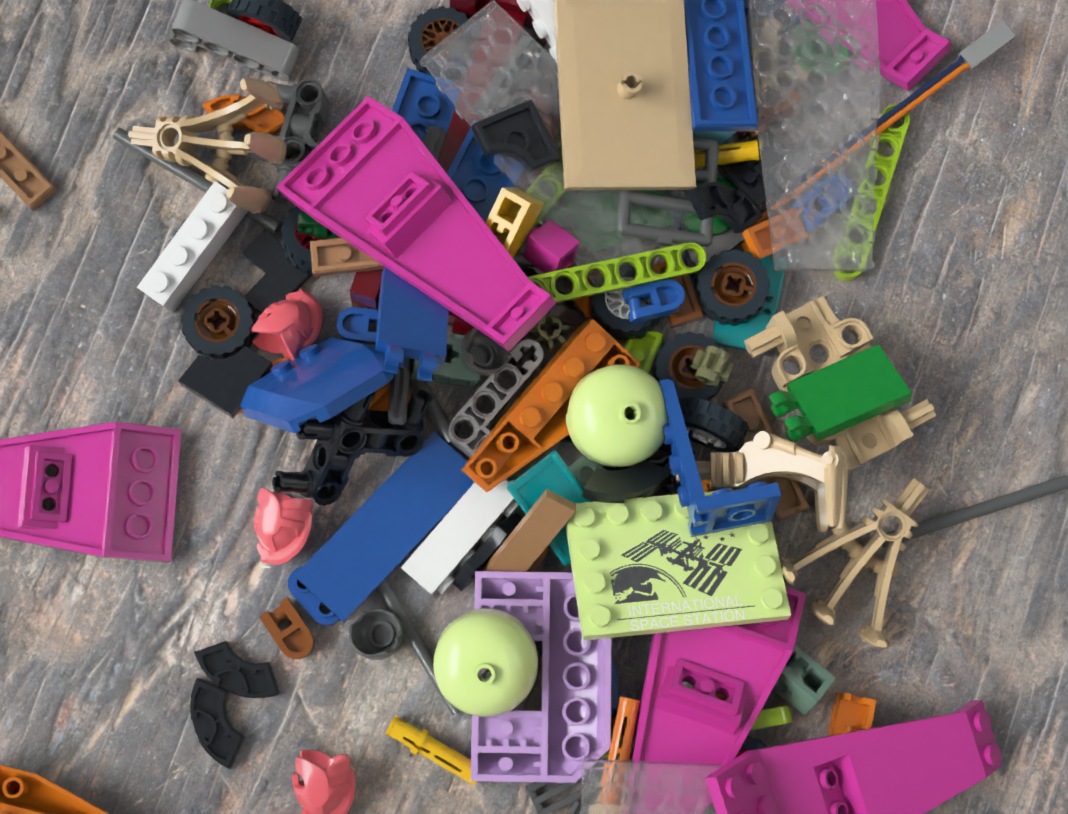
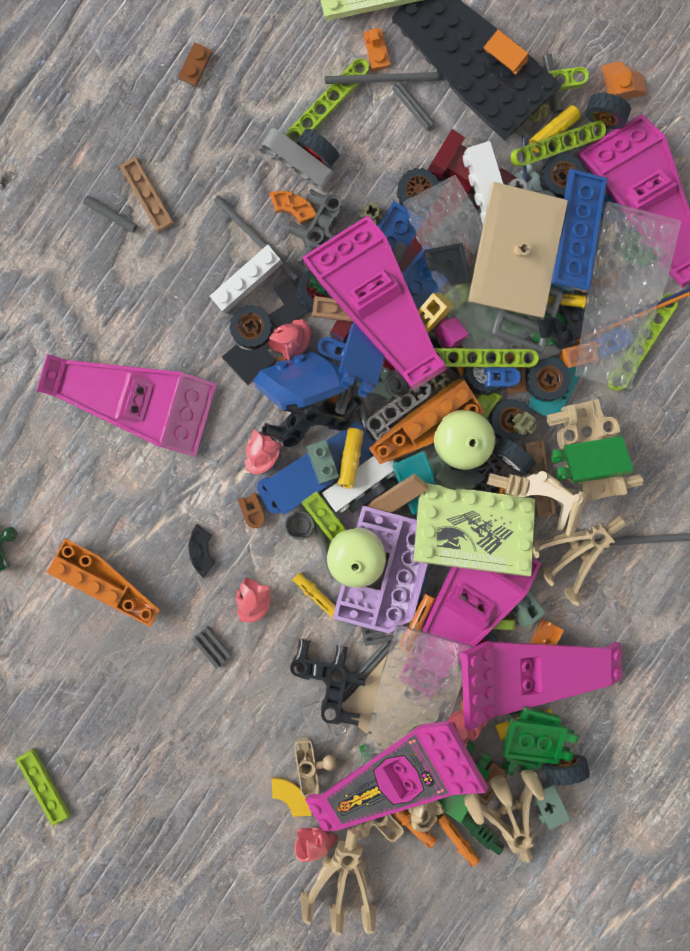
camera: 15 degrees right, 10 degrees up
(235, 674) = (218, 527): black tile -> none
(263, 144) = (301, 231): tan piece -> none
(377, 87) = (374, 208): none -> olive gear
(388, 514) = (322, 462): none -> sand green brick
(412, 605) = (323, 515): none -> lime tile
(435, 496) = (350, 458): none -> yellow axle
(723, 508) = (511, 508): blue bracket -> none

